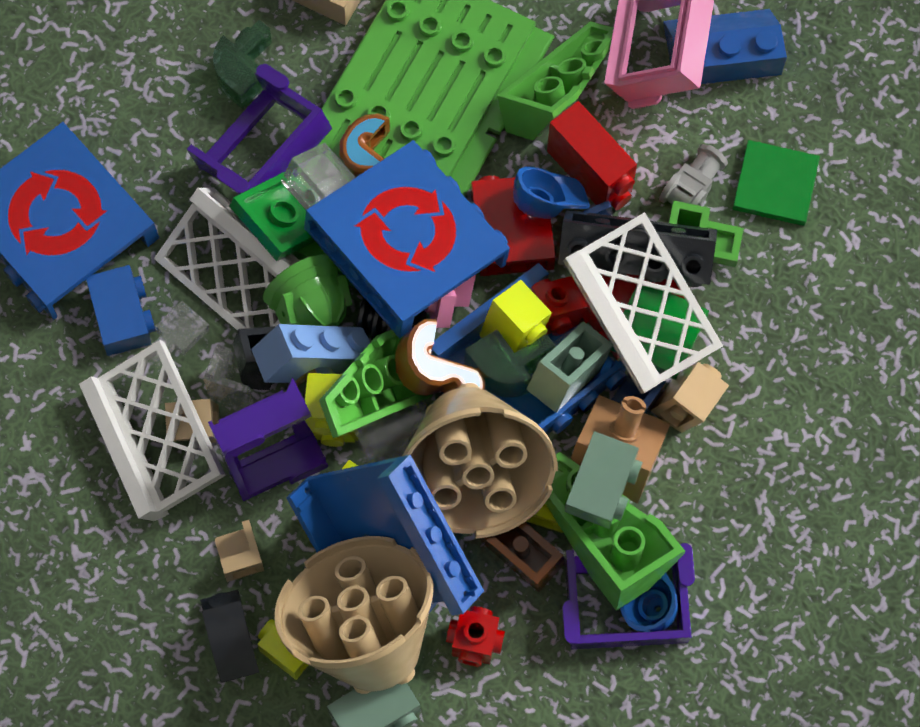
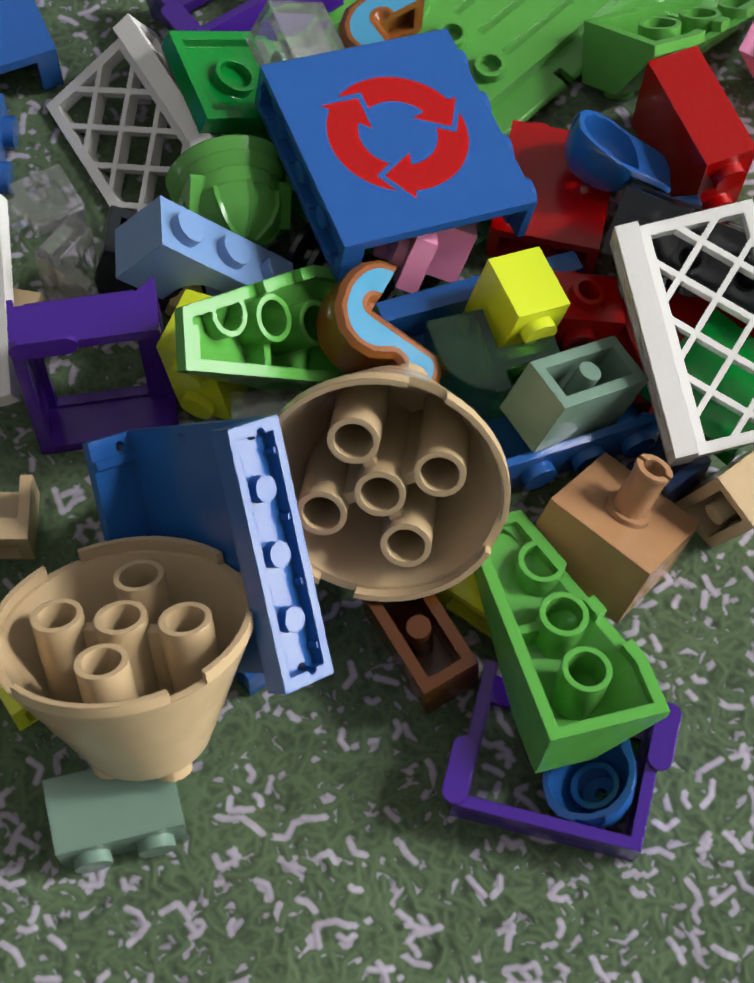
camera: 15 degrees right, 5 degrees down
(475, 650) = (306, 768): red brick -> none
(602, 480) = (572, 563): sand green brick -> none

